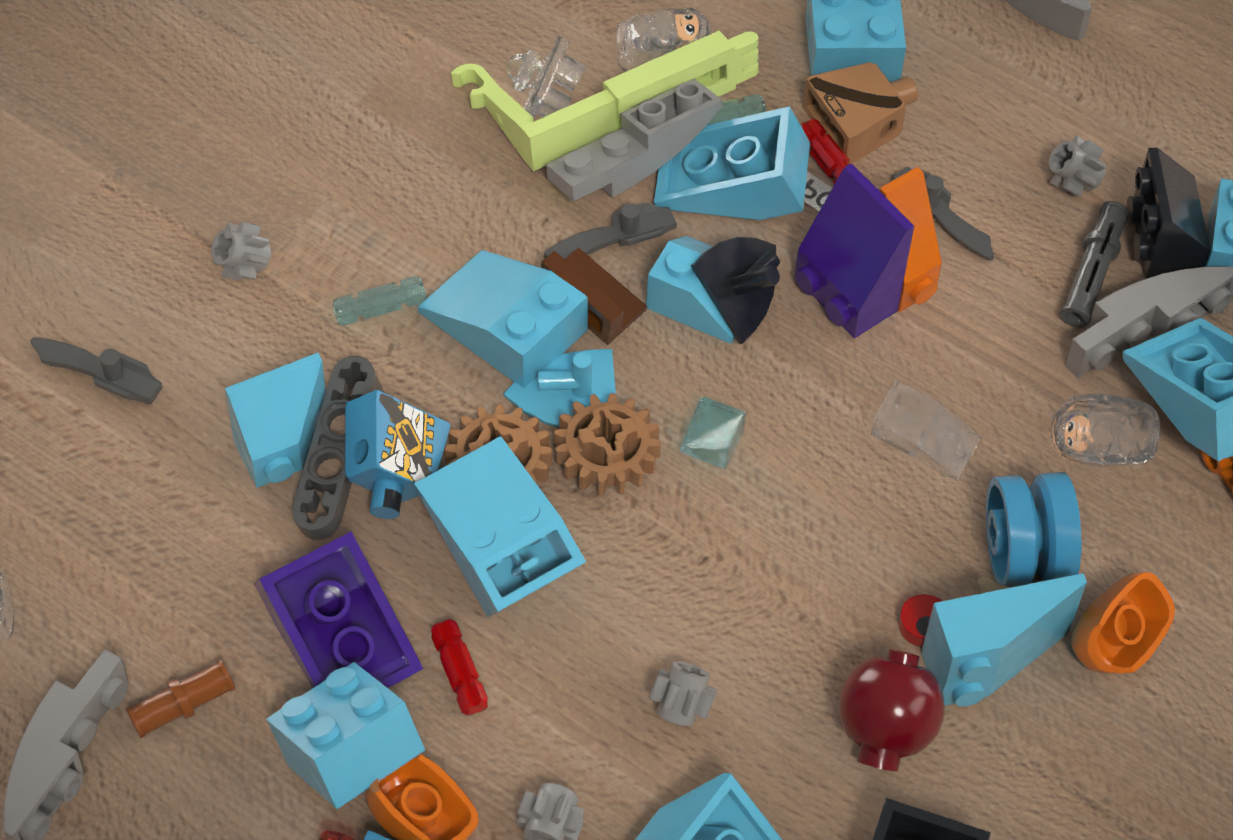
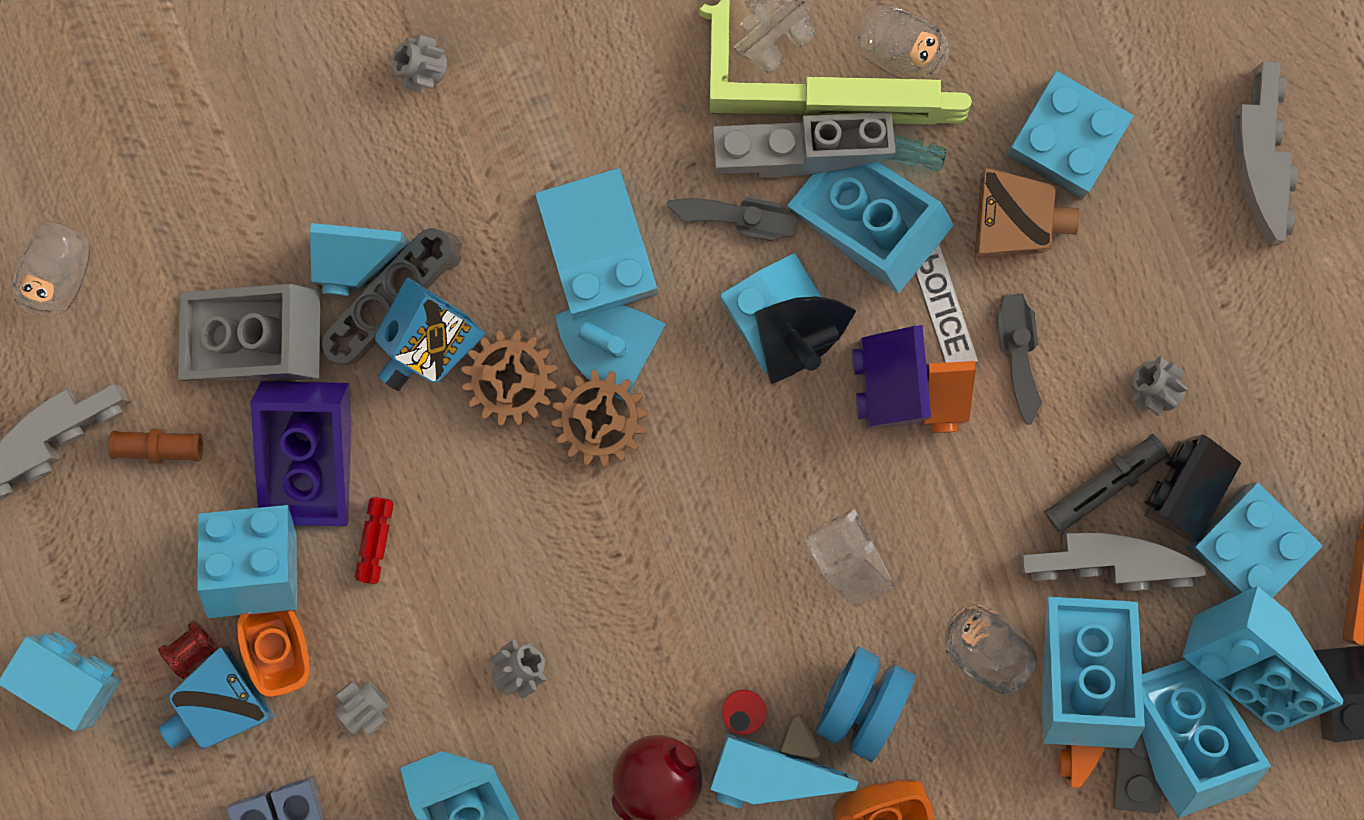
camera: 35 degrees right, 30 degrees up
(110, 372) = (262, 117): dark grey piece -> none
(214, 548) = (249, 334): none -> light grey slope
(379, 300) = (506, 170): clear light blue axle -> none
(498, 525) = (461, 455): medium azure slope -> none
(609, 302) = (679, 267): reddish brown panel -> none
(714, 432) = (690, 455): clear light blue slope -> none
(825, 149) = (964, 245): red axle -> none

